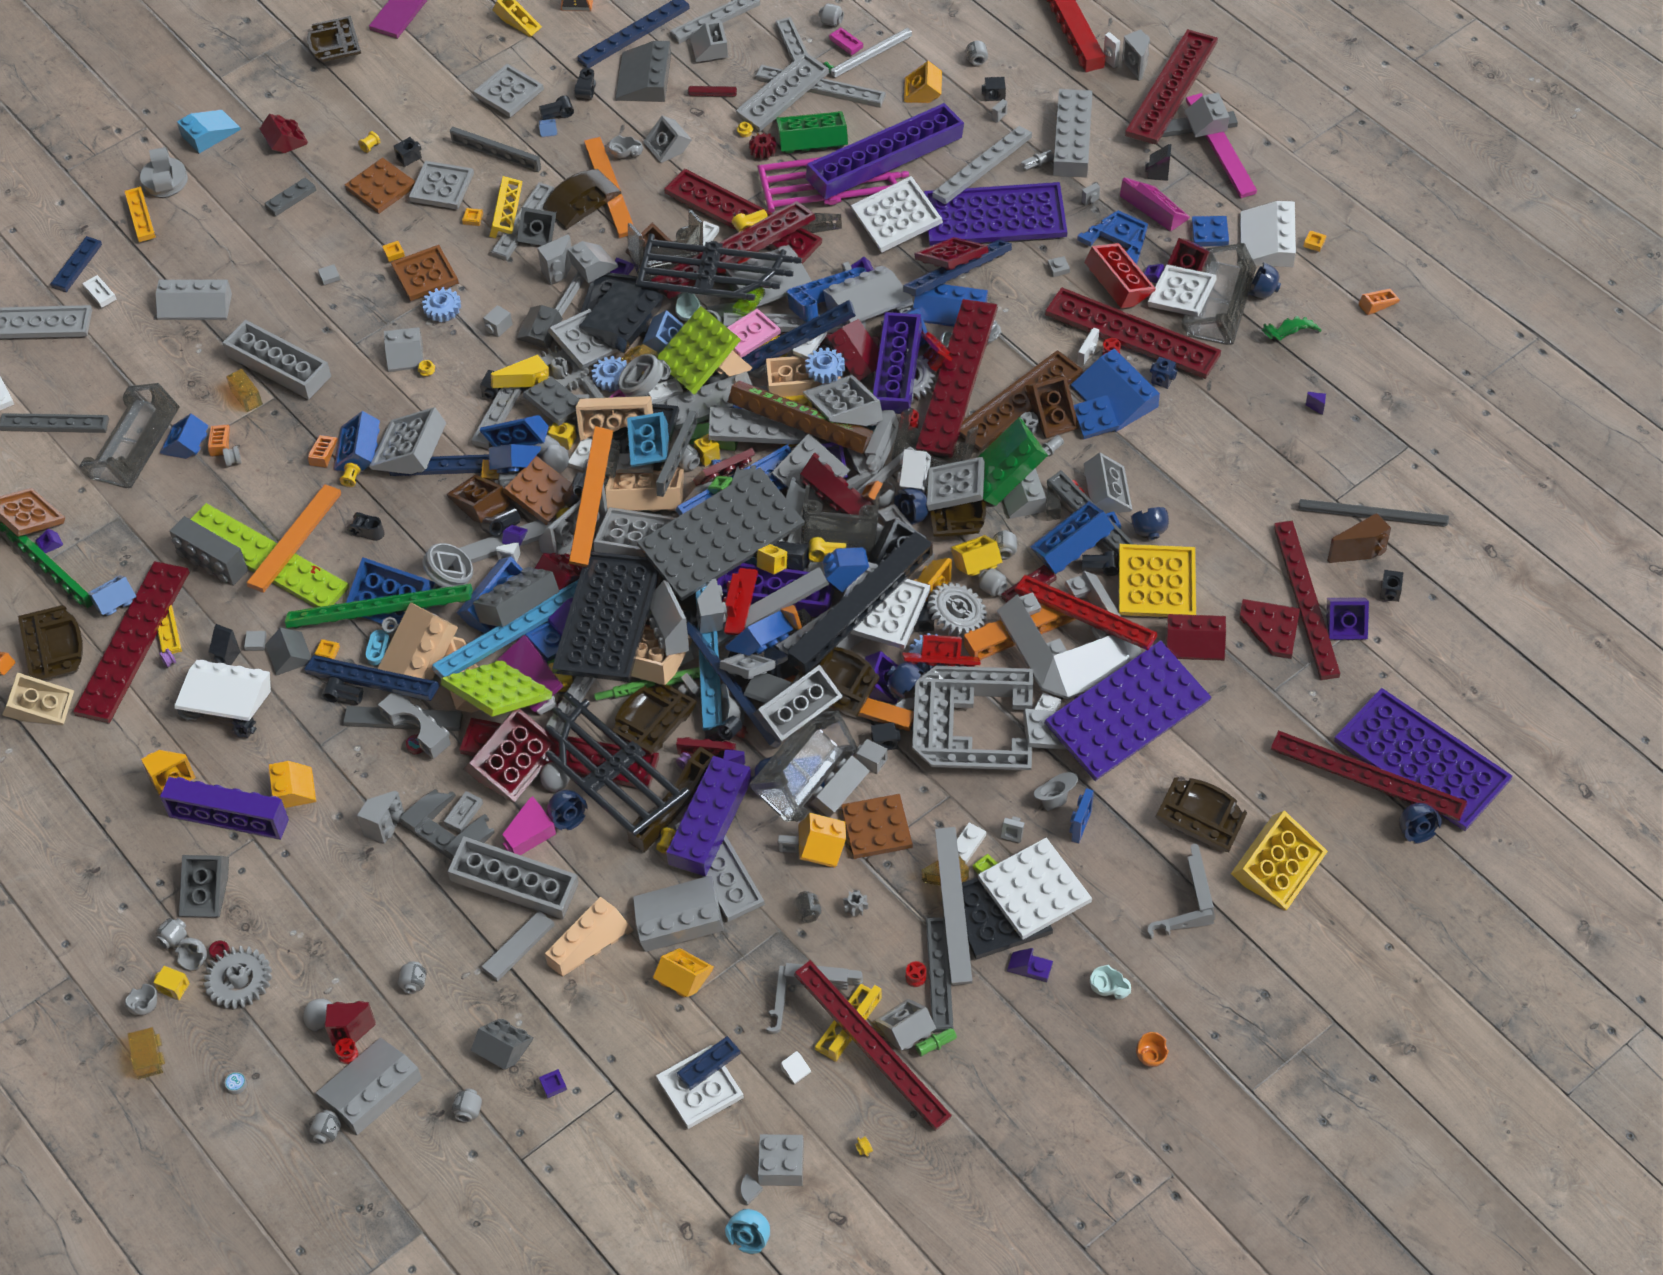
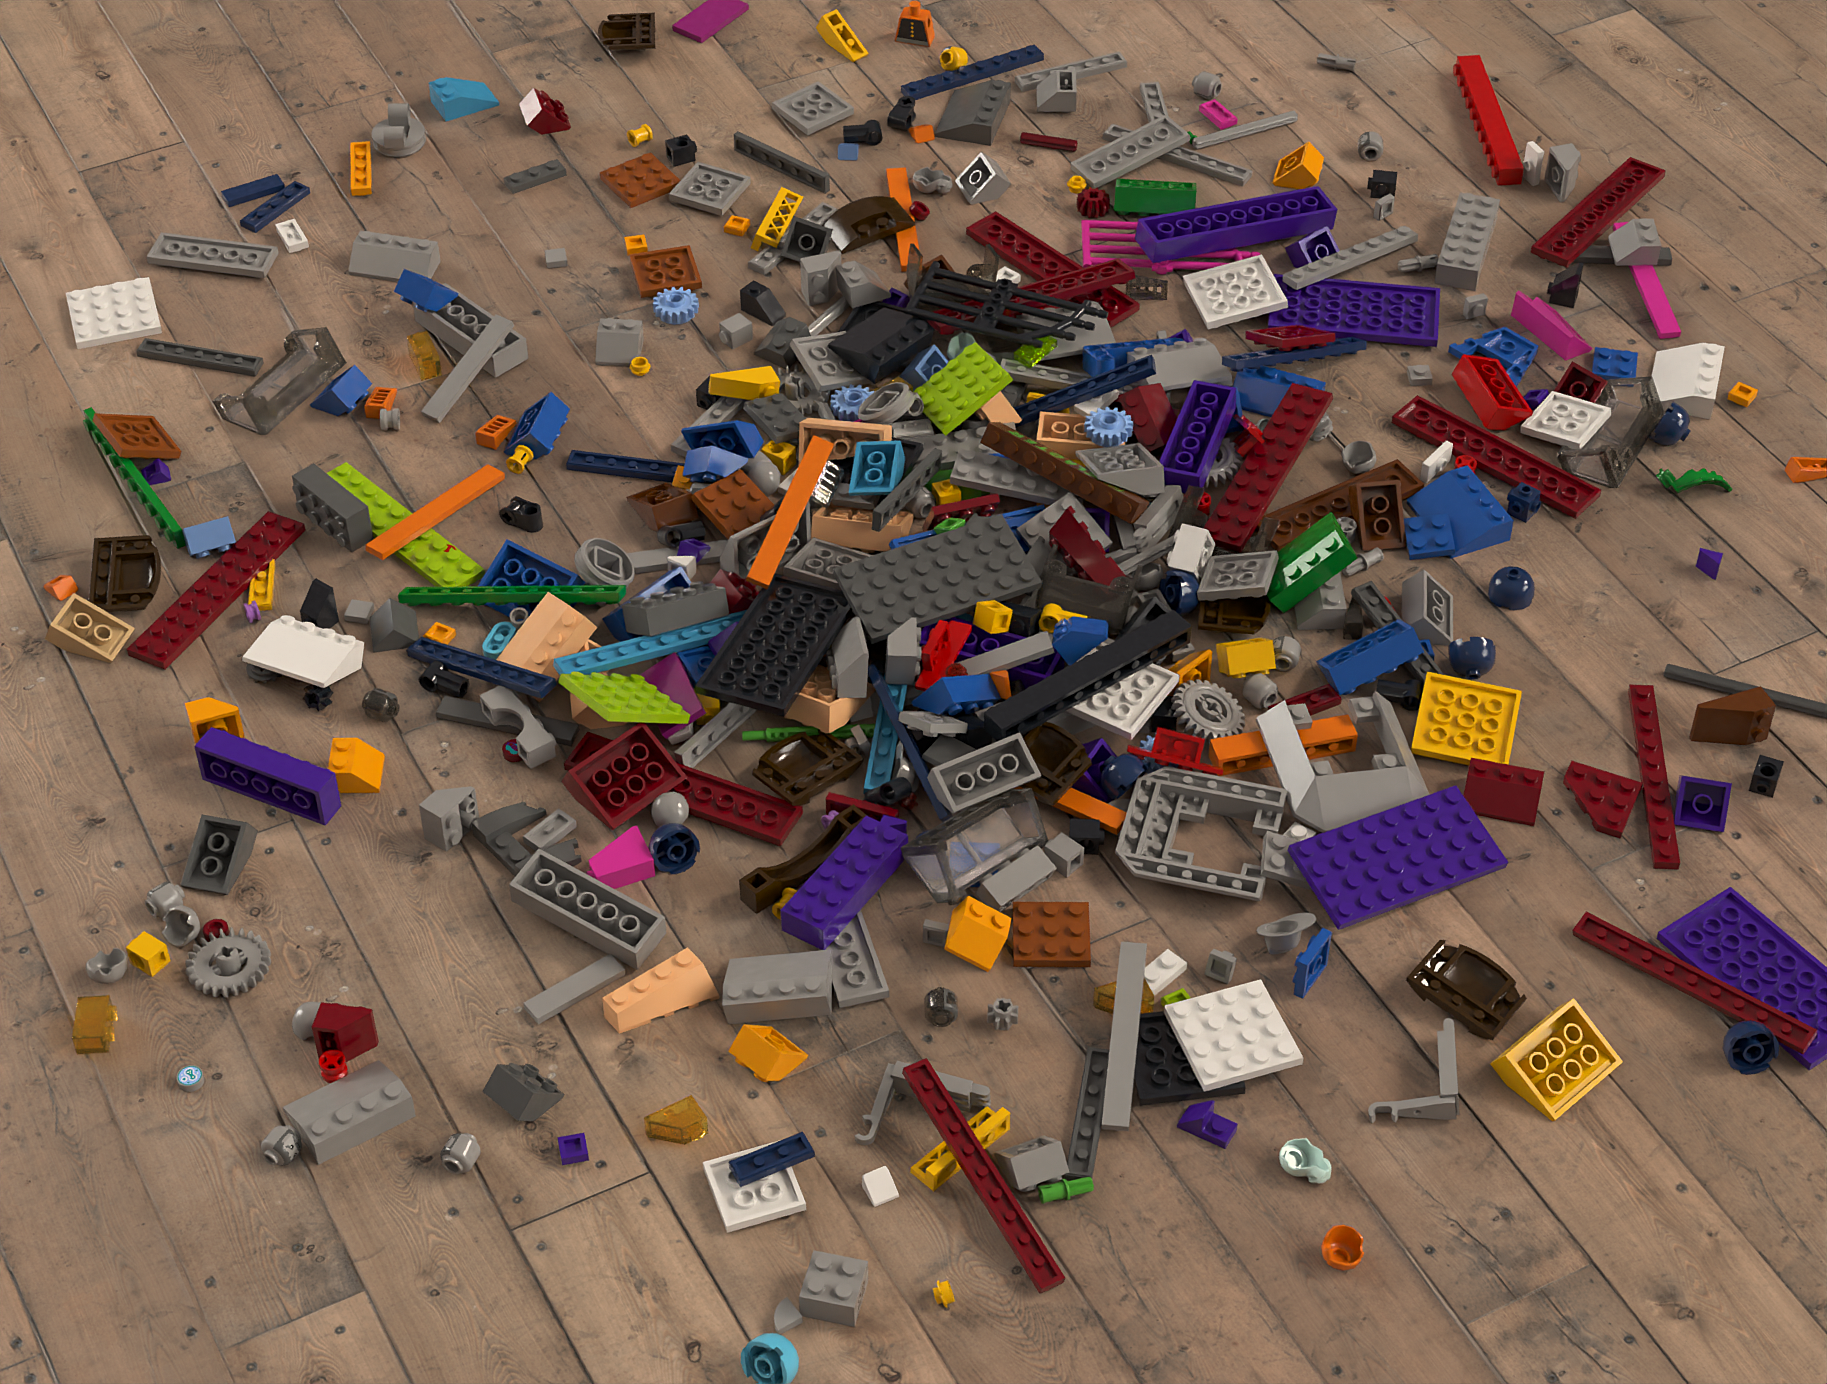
camera: 10 degrees right, 10 degrees down
(52, 251) = (252, 190): none -> dark blue tile
(231, 333) = (423, 291): none -> blue slope
(286, 398) = (467, 368): none -> light grey tile
(297, 724) = (380, 705): none -> clear smoke head
(409, 442) = (598, 435): light grey slope -> none
(412, 977) = (435, 999): light grey head -> none
(512, 291) = (761, 303): none -> black slope
(605, 99) = (922, 133): none -> orange slope
(610, 768) = (742, 807): black piece -> none
(615, 22) = (953, 58): none -> yellow head
(621, 177) = (919, 210): none -> dark red tile
(629, 1045) = (678, 1122): none -> clear yellow slope
(744, 221) = (1048, 269): yellow piece -> none
(751, 613) = (955, 669): none -> clear red plate
(753, 331) = (1031, 382): bright pink tile -> none
(871, 490) = (1133, 562): orange tile -> none
(918, 969) = (1062, 1101): red wheel -> none
(950, 161) = (1312, 247): none -> dark purple slope
(1027, 353) = (1359, 457): none -> light grey hair
(1087, 612) = (1371, 739): red tile -> none
(1168, 452) = (1511, 588): none -> dark blue cylinder

